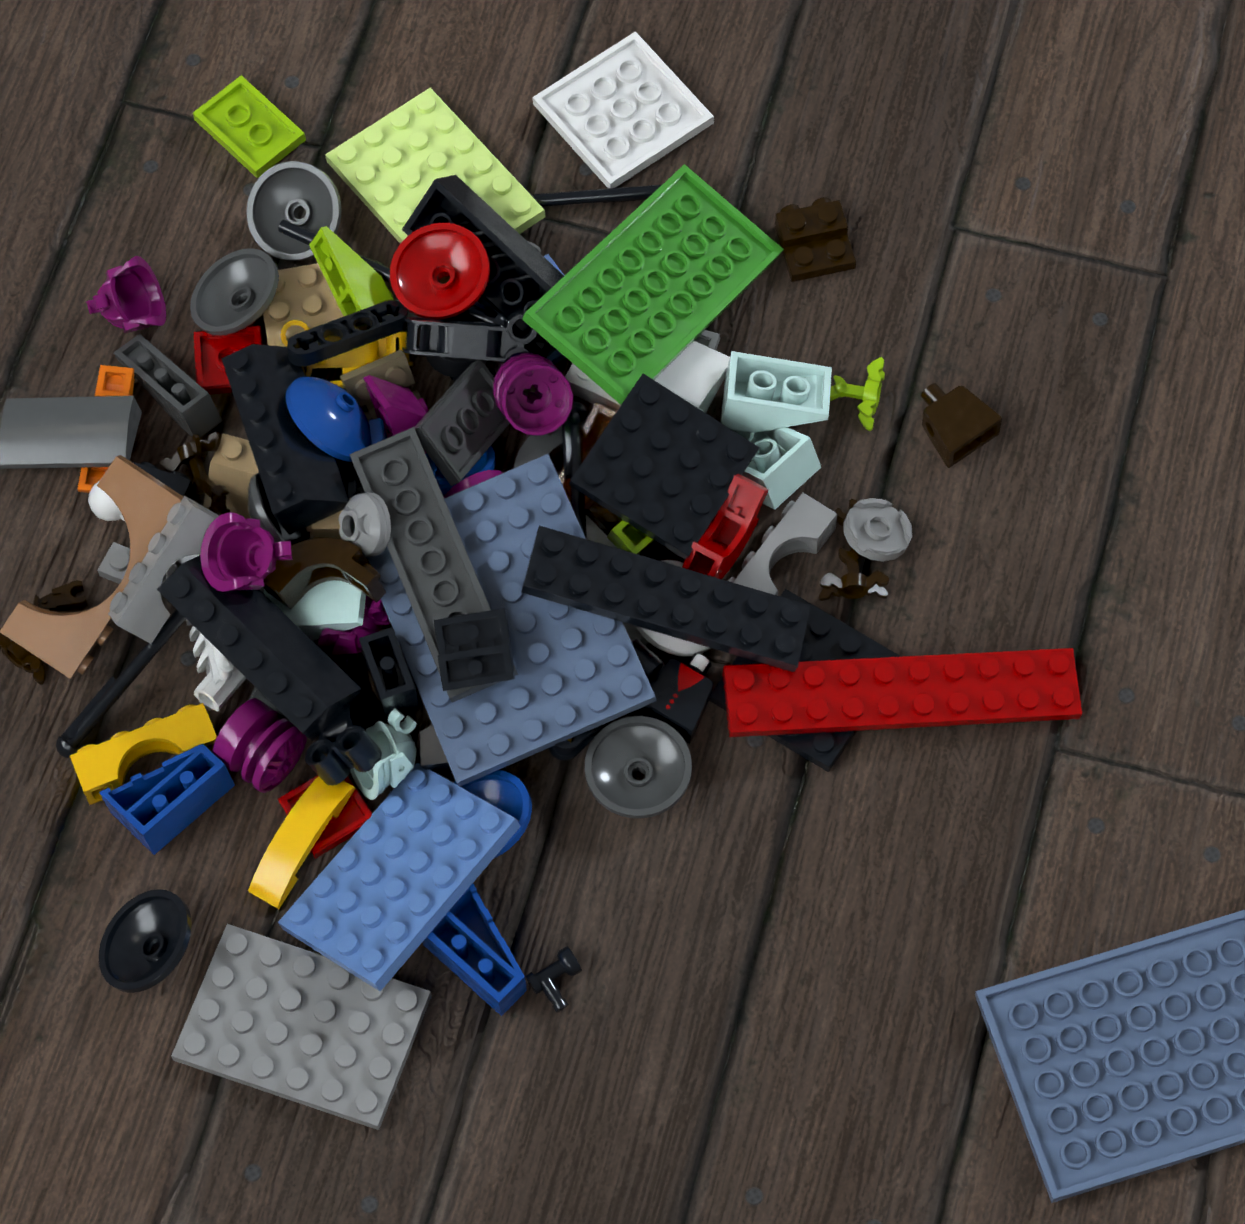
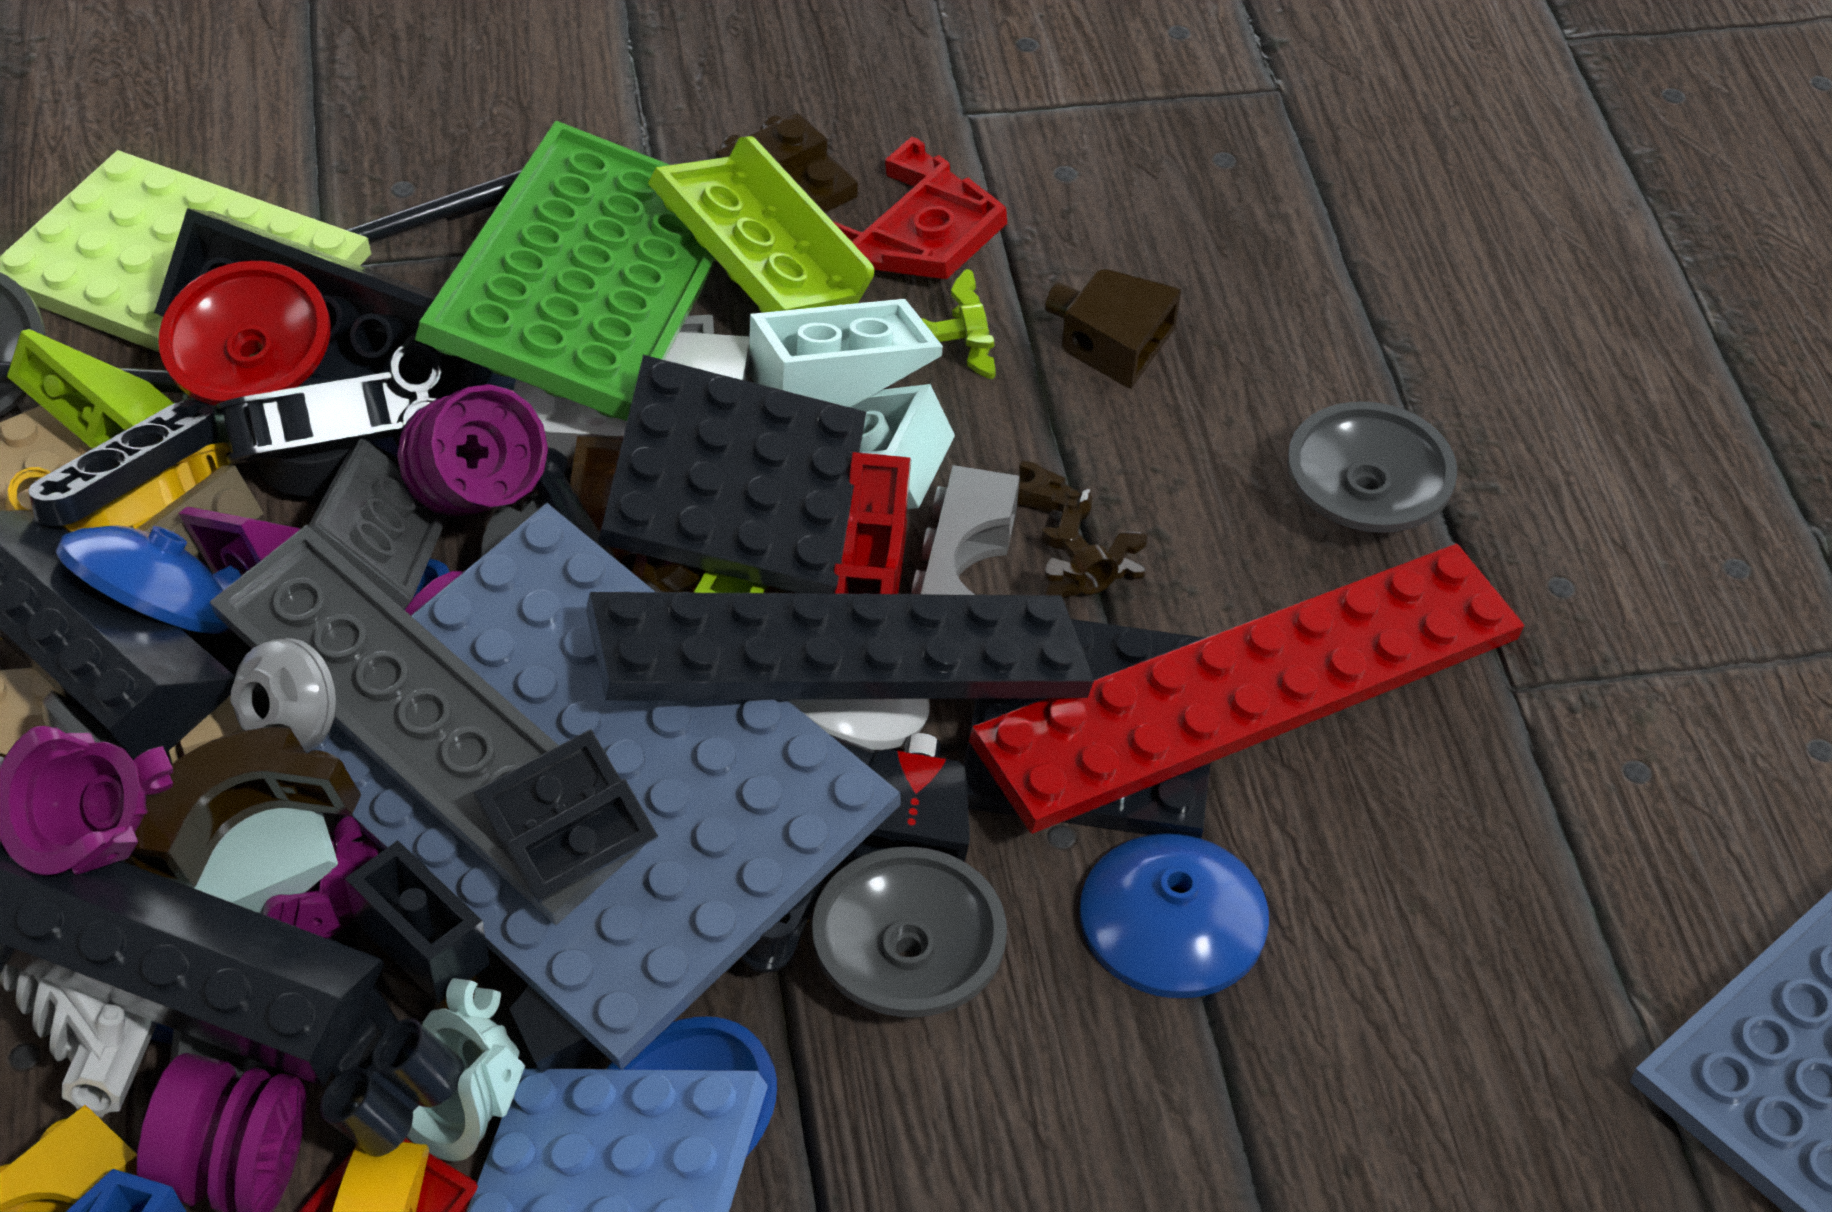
camera: 30 degrees left, 15 degrees down
(623, 110) = (424, 103): white plate -> none
(771, 290) = (764, 230): none -> lime bracket
(784, 827) = (1172, 939): none -> blue dish
(877, 529) = (1086, 484): light grey tile -> none
(880, 313) = (934, 223): none -> red wing
(1052, 564) = (1372, 467): none -> dark grey dish

